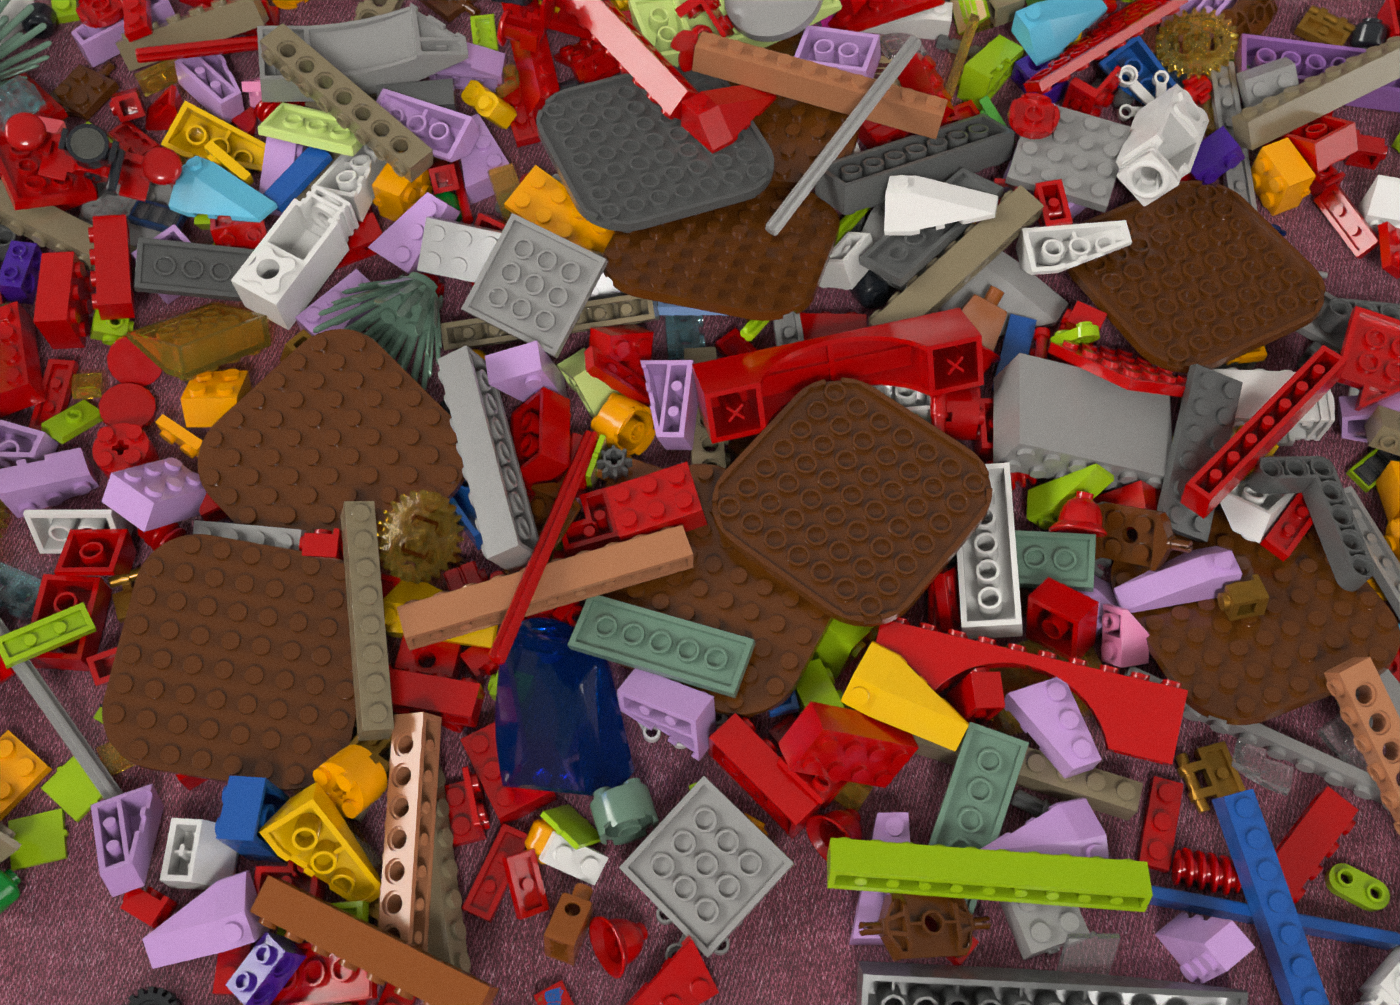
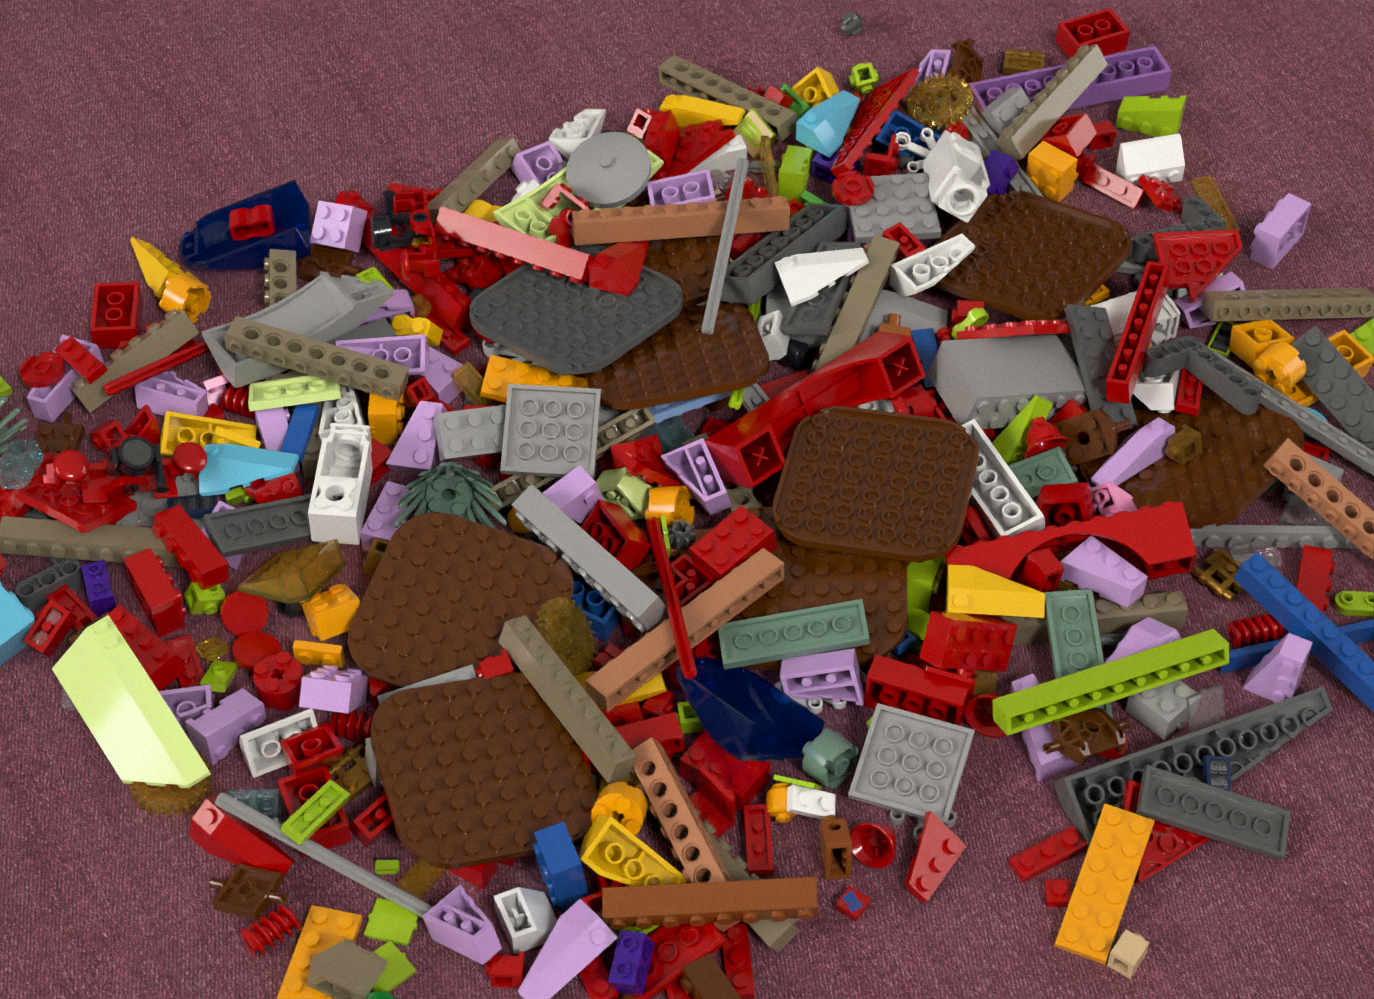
camera: 25 degrees left, 15 degrees down
(157, 77) = (120, 405): clear yellow plate -> none
(525, 883) = (785, 834): red plate -> none
(1160, 823) = (1204, 610): red plate -> none
(1369, 33) = (1058, 54): black head -> none

